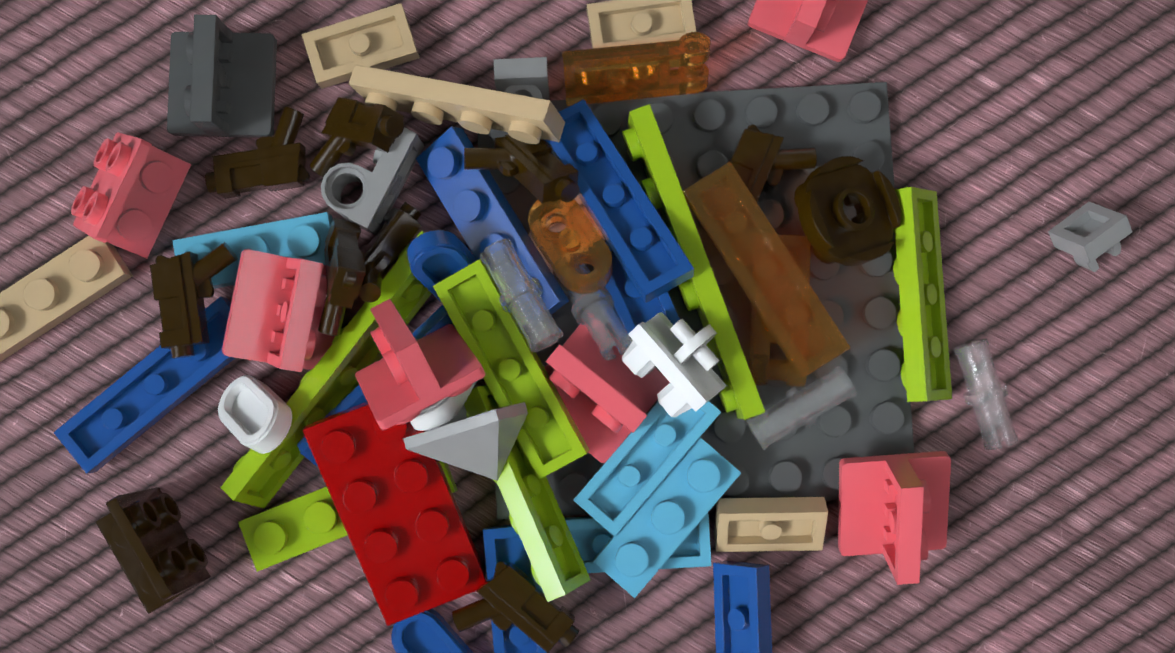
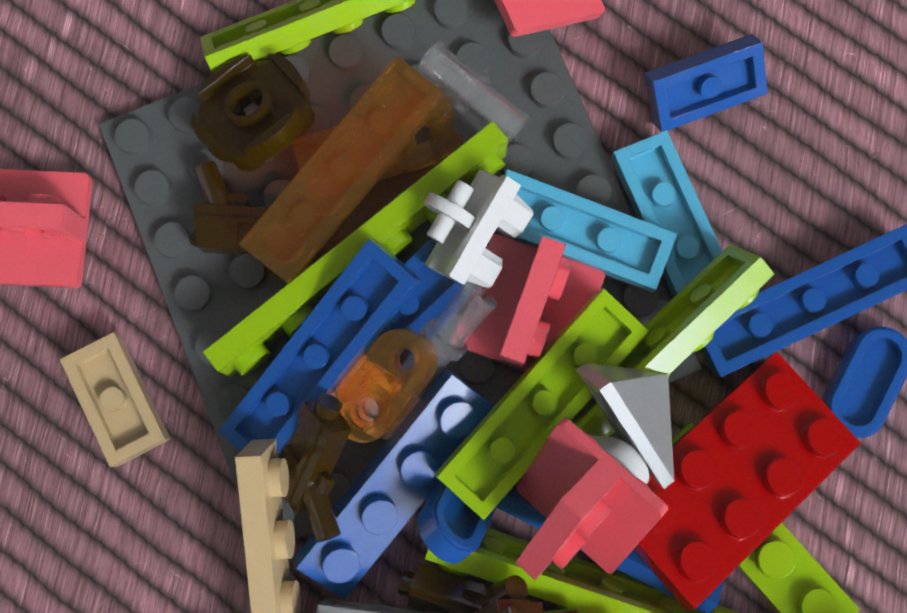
camera: 105 degrees left, 5 degrees down
(515, 599) = (780, 314): dark brown piece -> none
(521, 295) = (460, 416): clear pin -> none
(522, 76) = (216, 508): light grey tile -> none
(637, 70) = (168, 386): clear orange plate -> none
(666, 517) = (638, 188): medium azure plate -> none
(770, 524) = (601, 87): tan plate -> none

